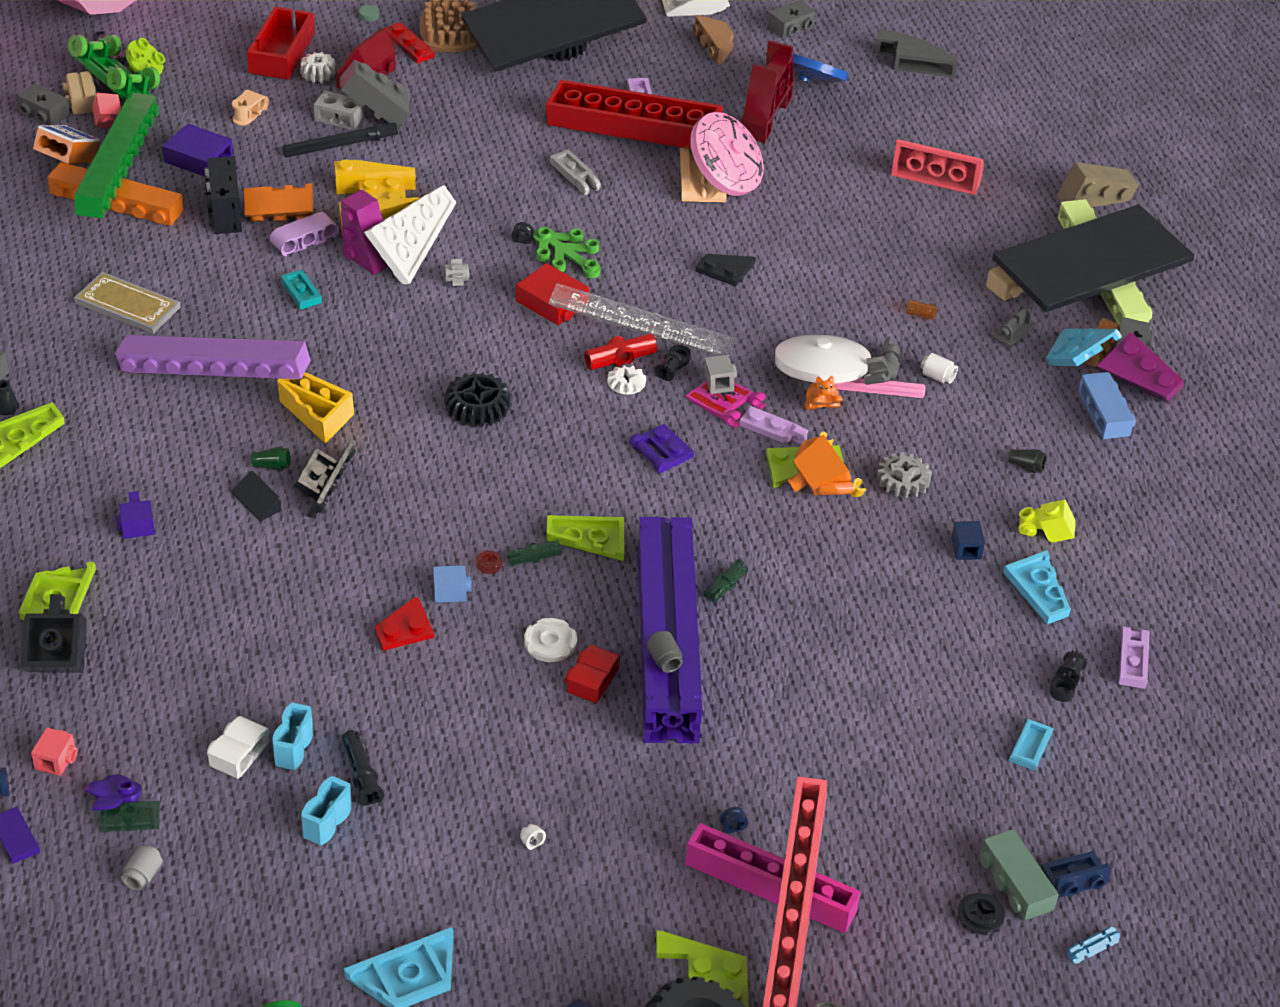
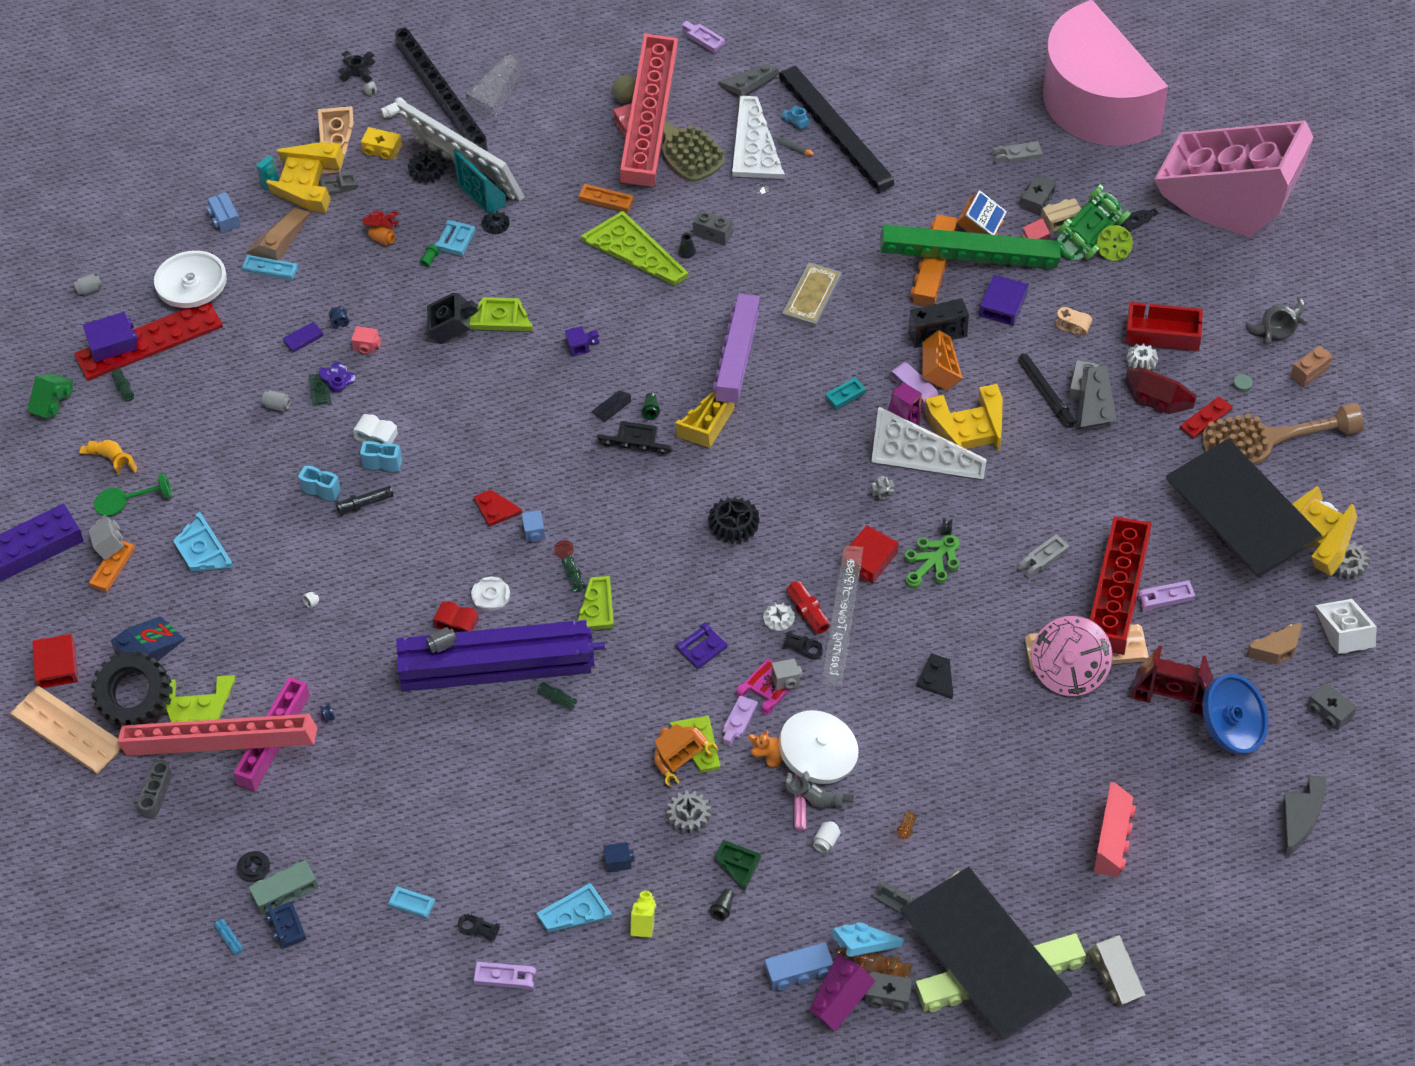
camera: 90 degrees right, 10 degrees up
(972, 442) = (737, 862): none -> dark green wing

